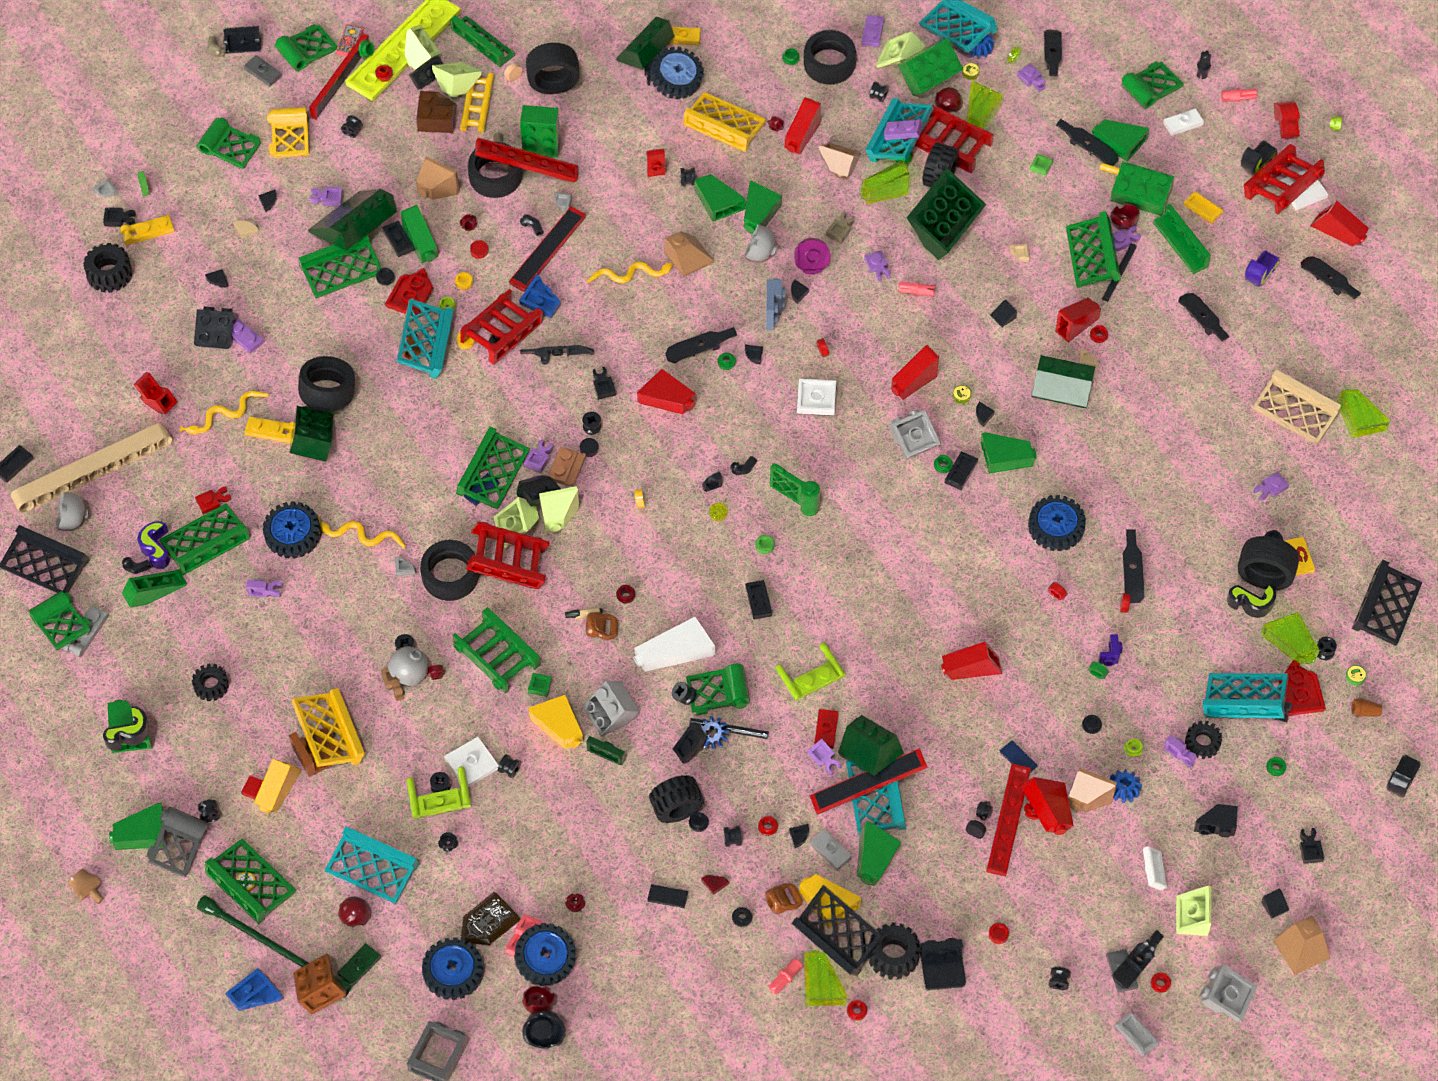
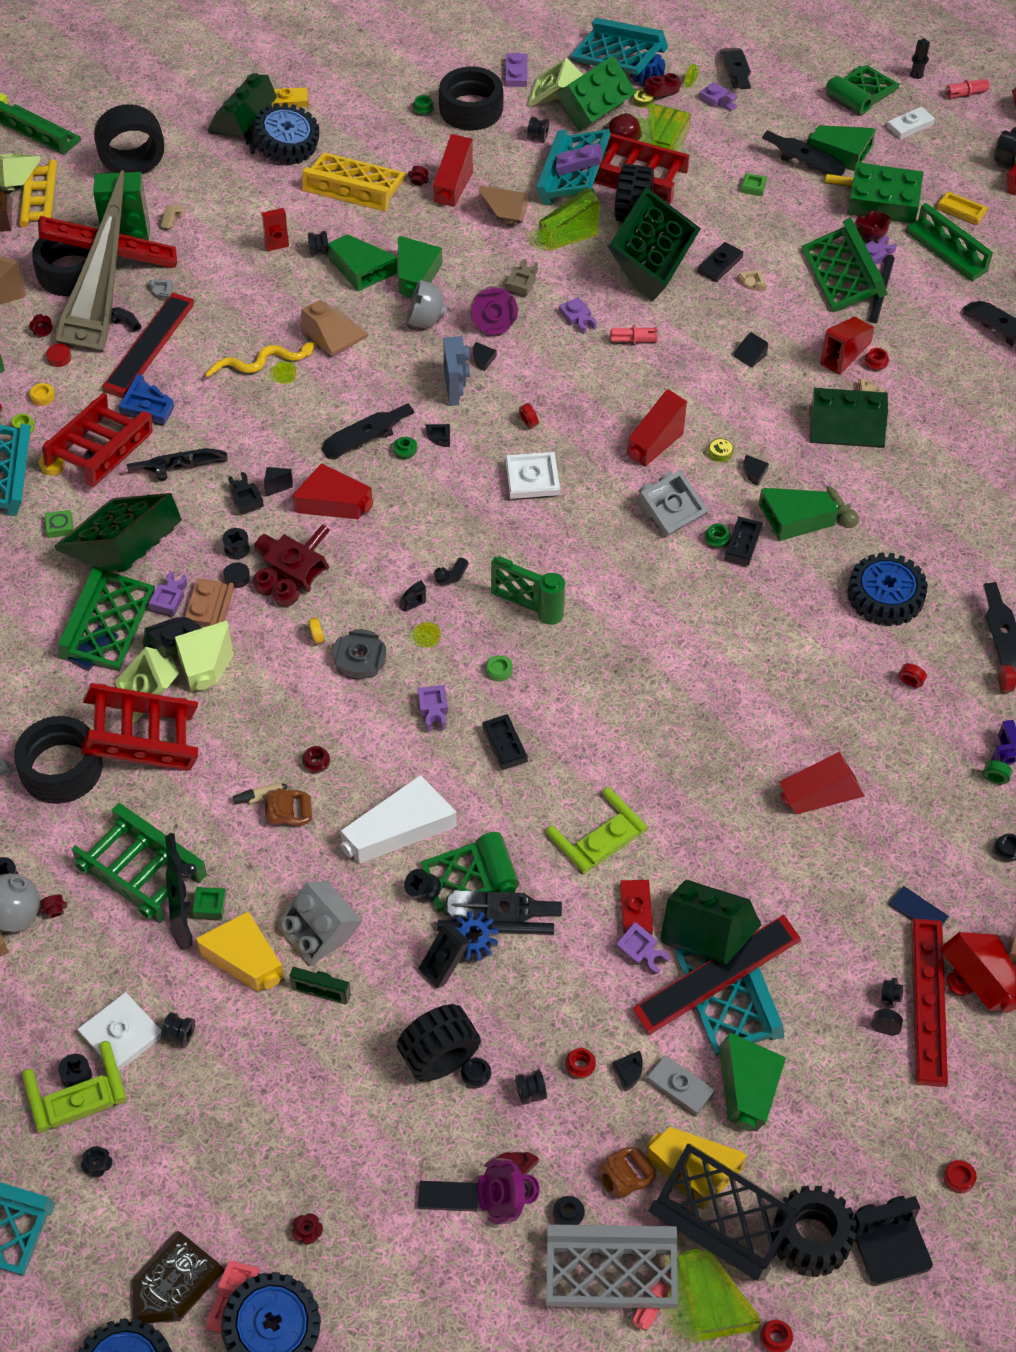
camera: 10 degrees left, 5 degrees down
(466, 389) = (59, 523): none -> bright green tile
(506, 214) = (89, 308): none -> dark tan plate
(510, 403) = (122, 531): none -> dark green slope
(513, 72) = (80, 156): light nougat tile -> none
(519, 674) = (177, 892): none -> black piece
(577, 135) = (171, 214): none -> tan tile
(628, 376) = (277, 480): none -> black slope
(629, 443) = (293, 562): none -> dark red piece
(646, 286) = (284, 372): none -> clear neon green tile
(667, 530) = (364, 666): none -> dark grey plate
(701, 897) = (503, 1190): none -> magenta tile
(713, 565) = (433, 705): none -> medium lavender plate
(725, 712) = (520, 906): none -> black piece
(764, 939) = (618, 1241): none -> light grey fence
(987, 62) = (662, 85): none -> dark red plate
(998, 232) = (720, 262): none -> black plate
(1043, 460) = (847, 517): none -> olive bar

